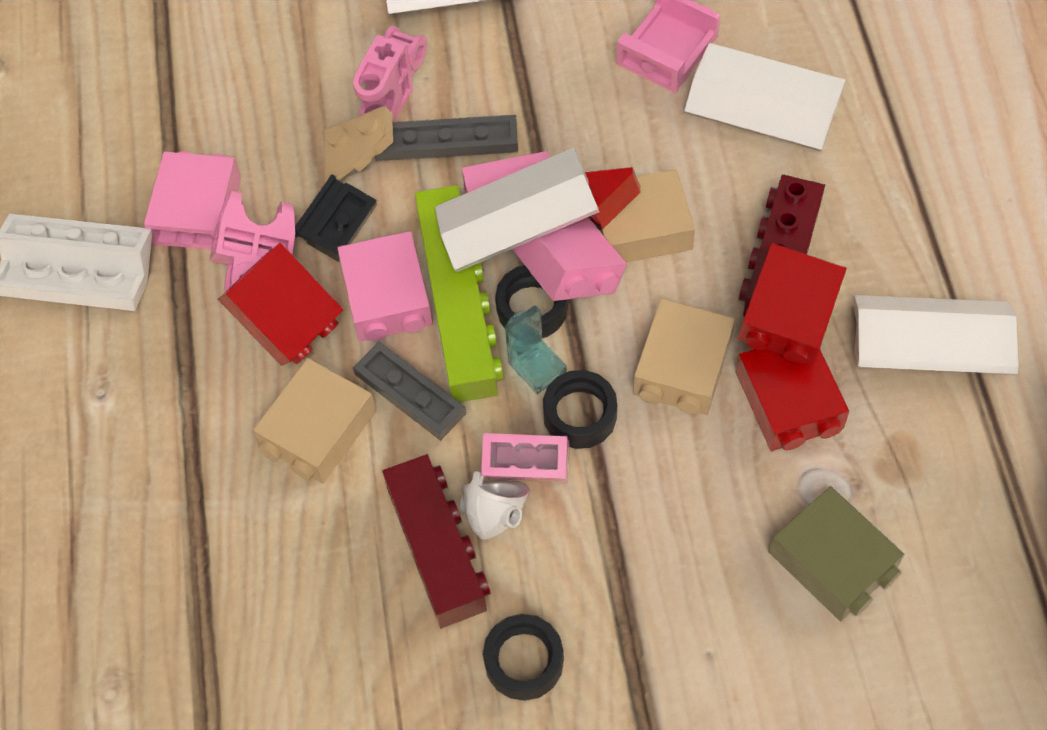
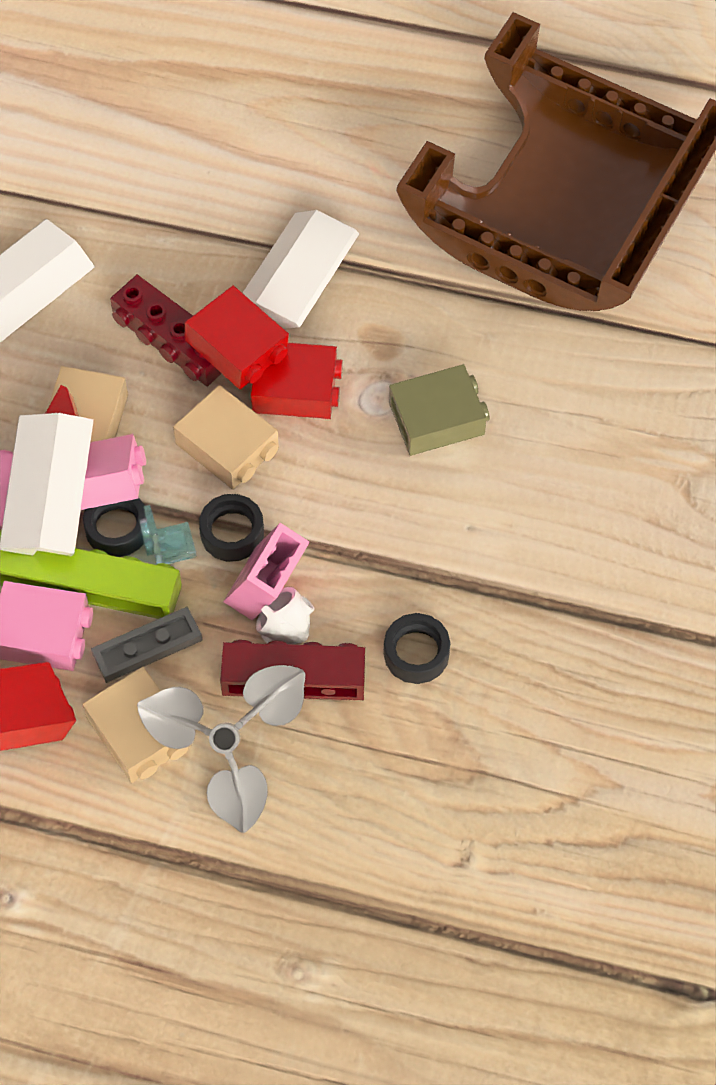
camera: 70 degrees left, 0 degrees up
(281, 550) = (174, 715): none -> light grey plant

